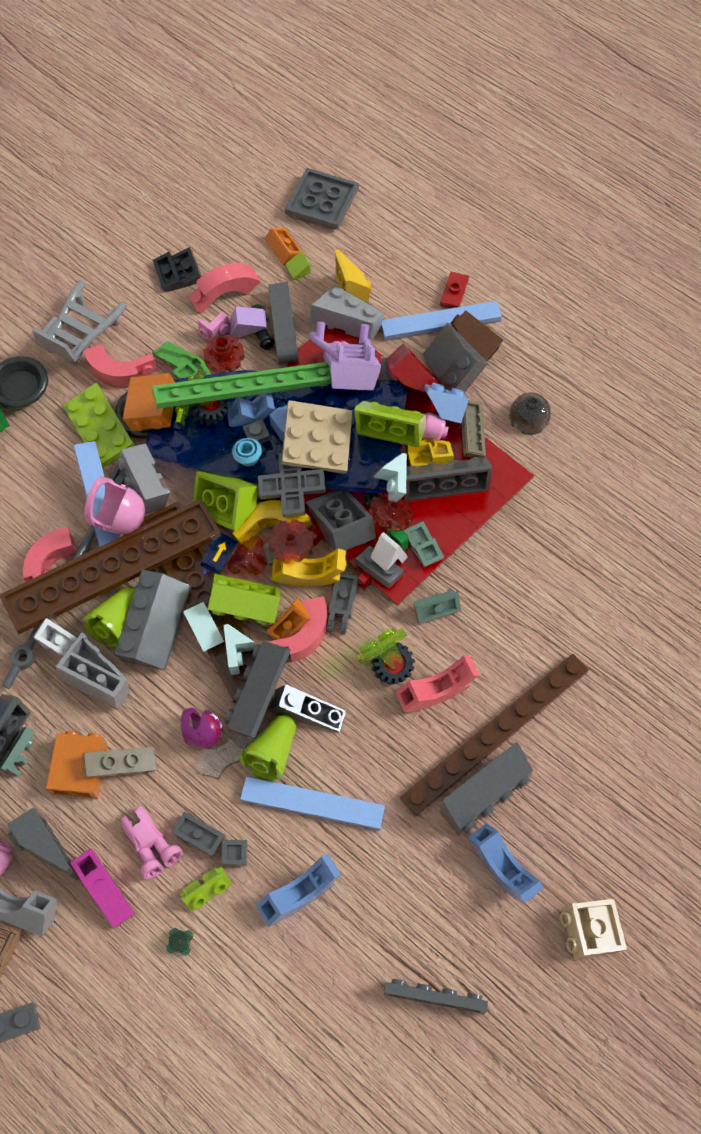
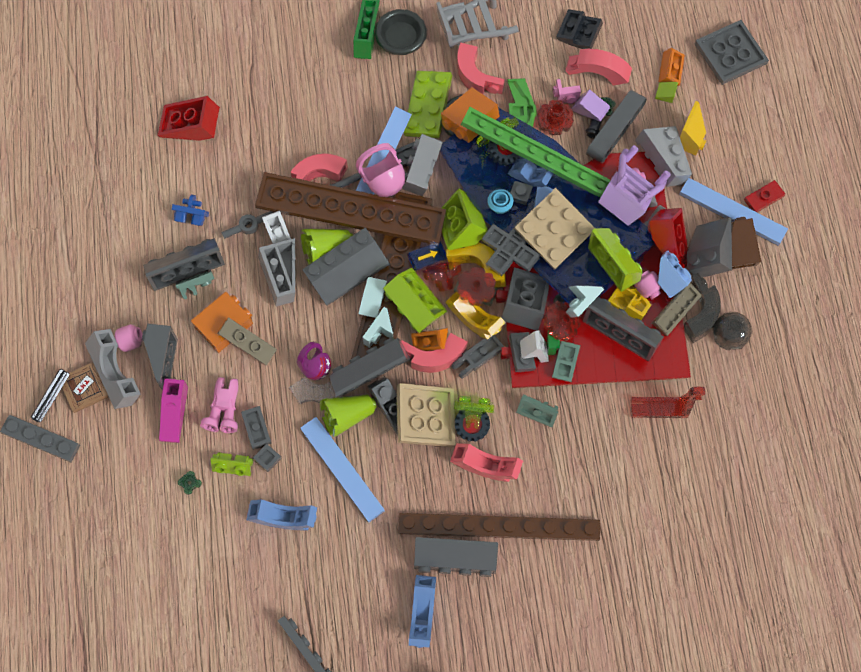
camera: 40 degrees right, 5 degrees up
(346, 690) = (425, 415): none -> tan plate
(498, 412) = (710, 302): none -> clear smoke arch
(540, 513) = (666, 406): none -> clear red hinge

